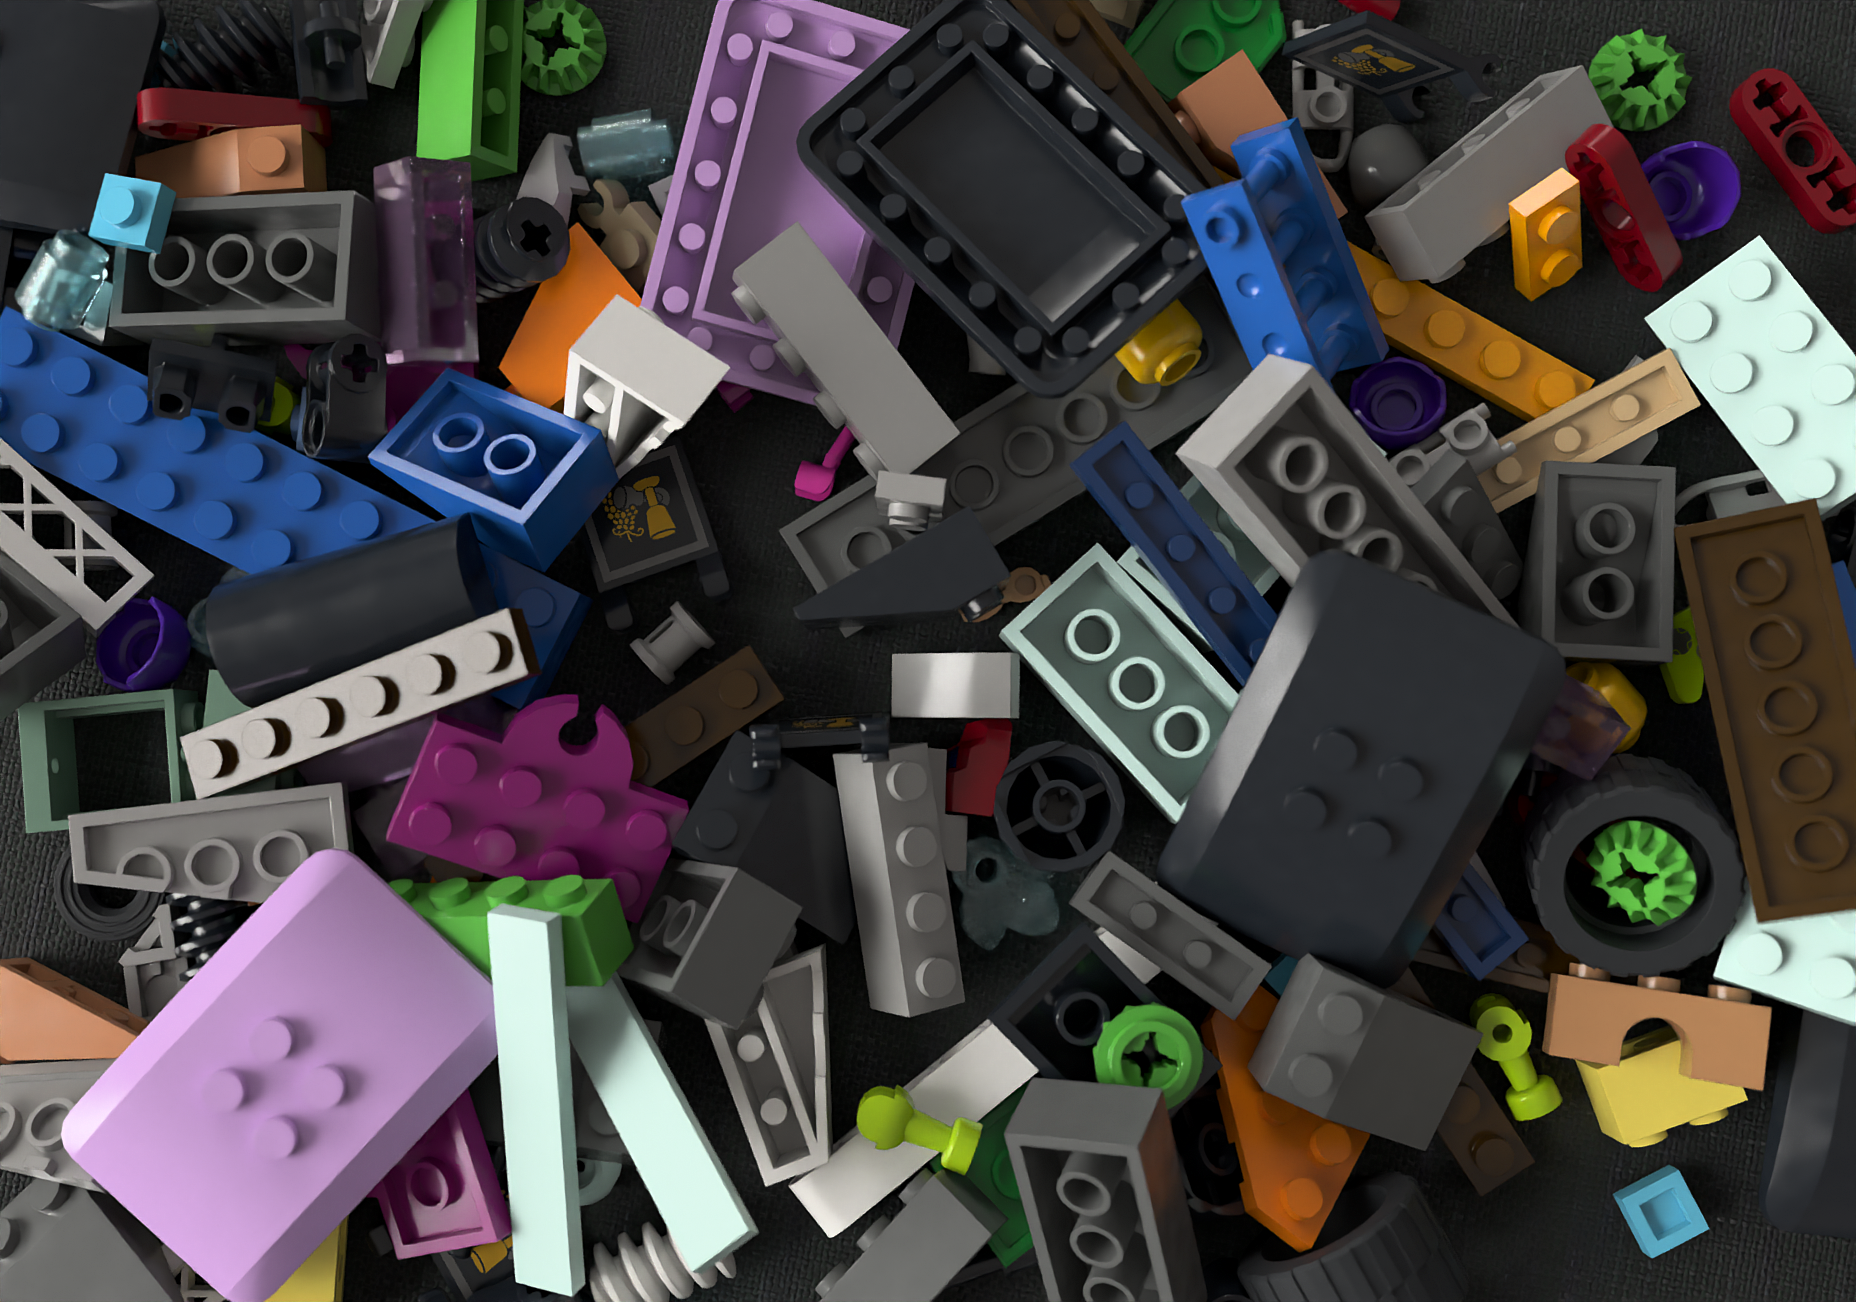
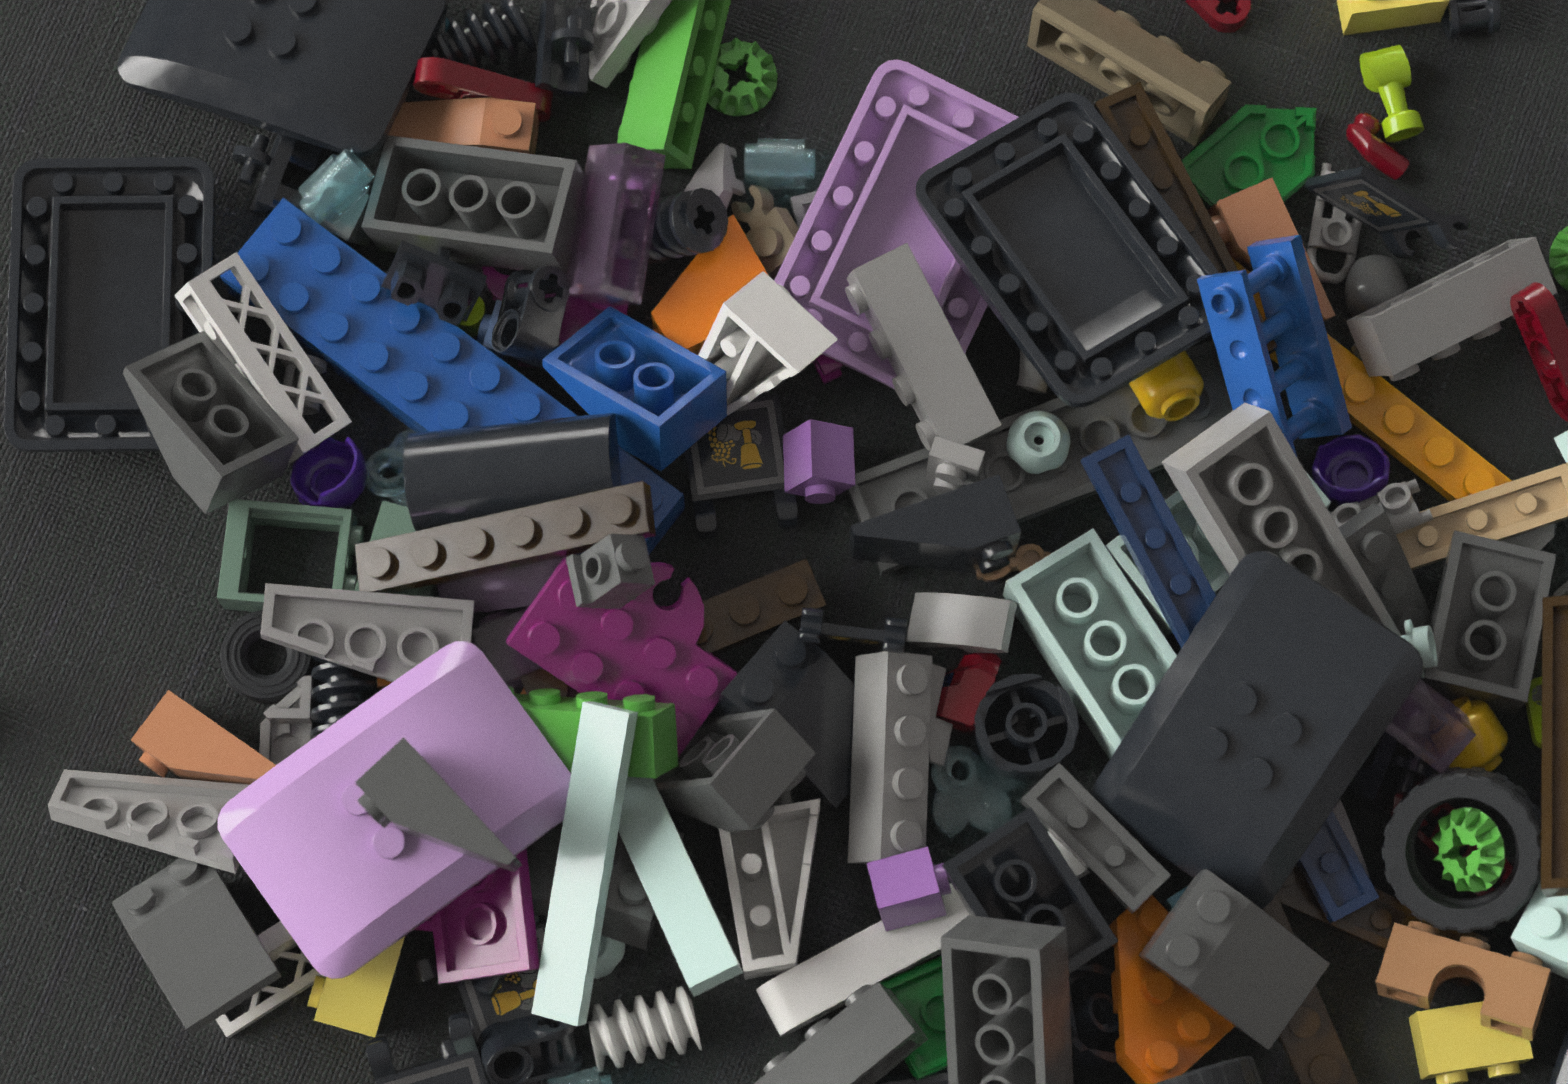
camera: 10 degrees right, 10 degrees down
(132, 213) = (398, 146): medium azure plate -> none
(306, 1110) = (419, 802): none -> dark grey slope
(491, 733) = (611, 572): none -> dark grey brick
(672, 643) = (744, 550): light grey bush -> none
(743, 516) = (818, 461): none -> medium lavender brick
(817, 480) = (880, 447): dark pink hand -> none
(891, 1118) = (851, 941): lime leg -> none
(949, 1042) = (908, 888): none -> medium lavender brick
(1005, 461) = (1034, 457): none -> light aqua plate
(1171, 1037) = (1082, 905): bright green gear -> none
(1506, 1041) = (1349, 978): lime leg -> none
(1531, 615) = (1423, 640): none -> light aqua plate
(1546, 234) = (1488, 361): light orange plate -> none

